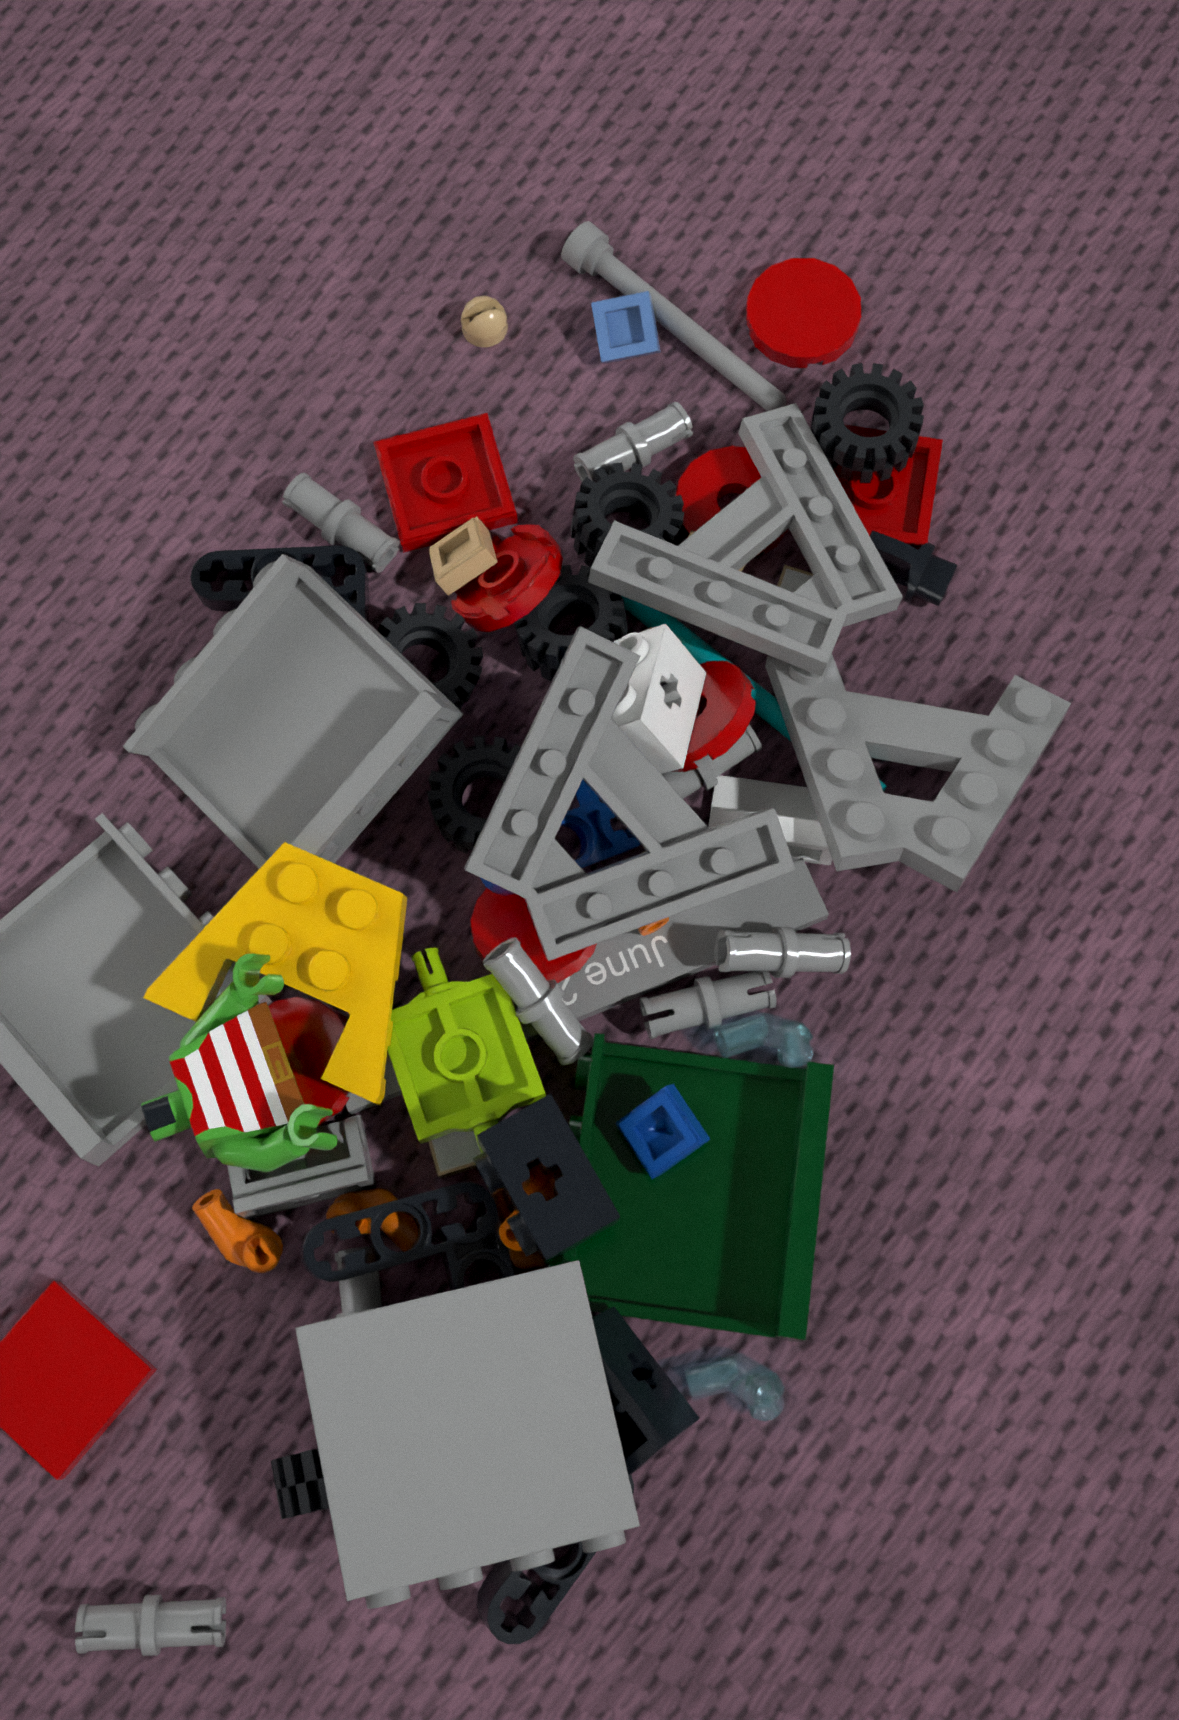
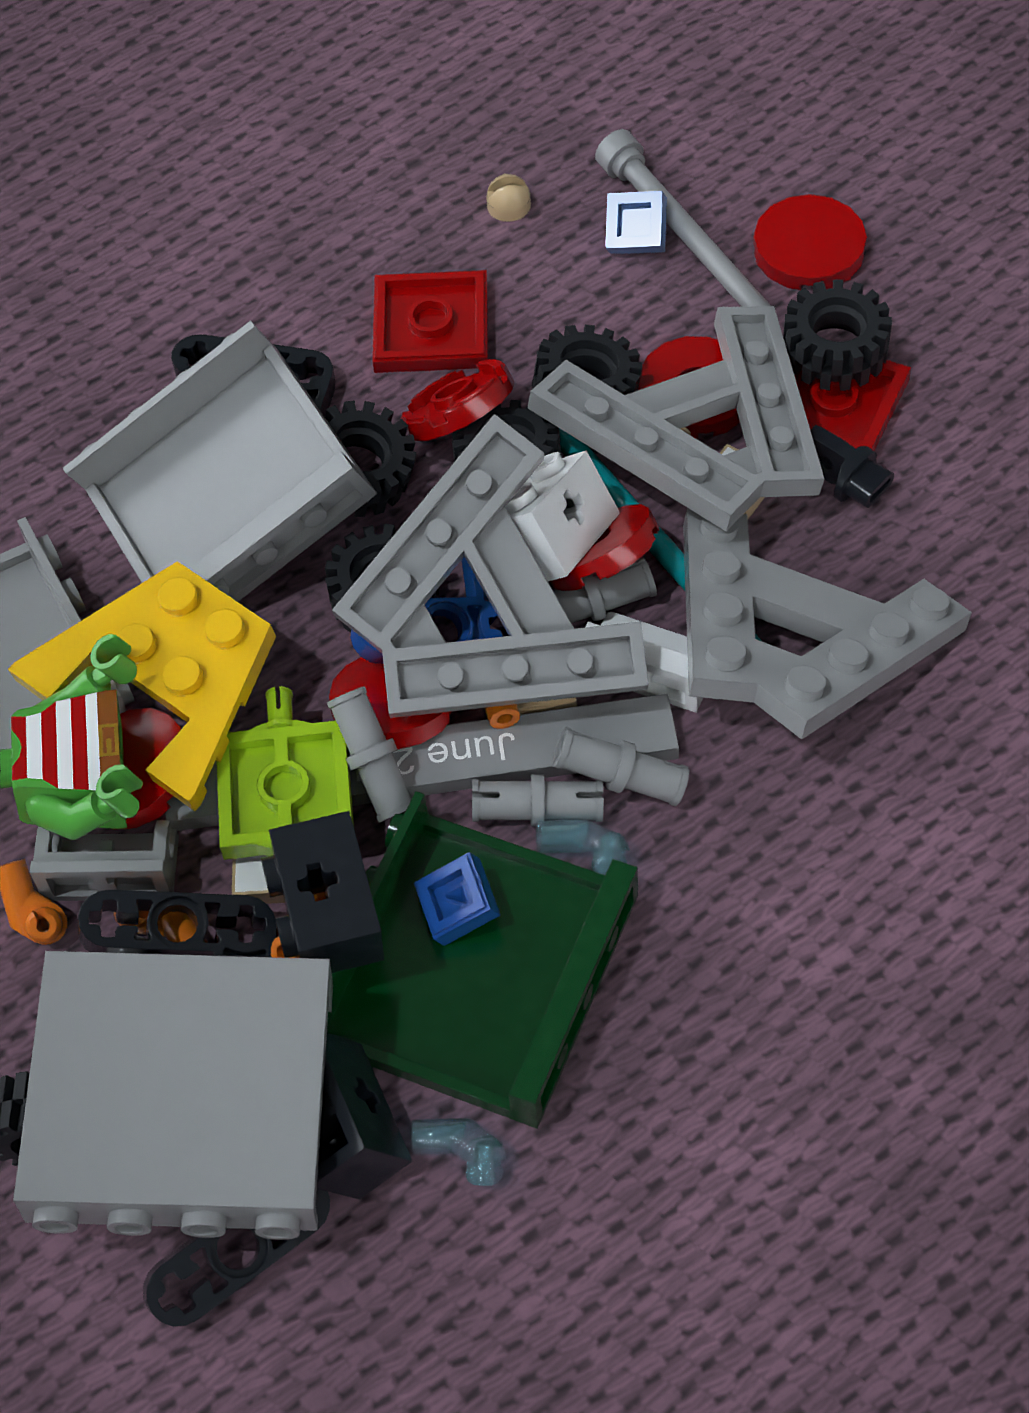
camera: 15 degrees right, 15 degrees down
(340, 522) = (323, 333): light grey pin -> none
(462, 555) = (424, 377): tan tile -> none
(636, 442) = (622, 316): light grey pin -> none

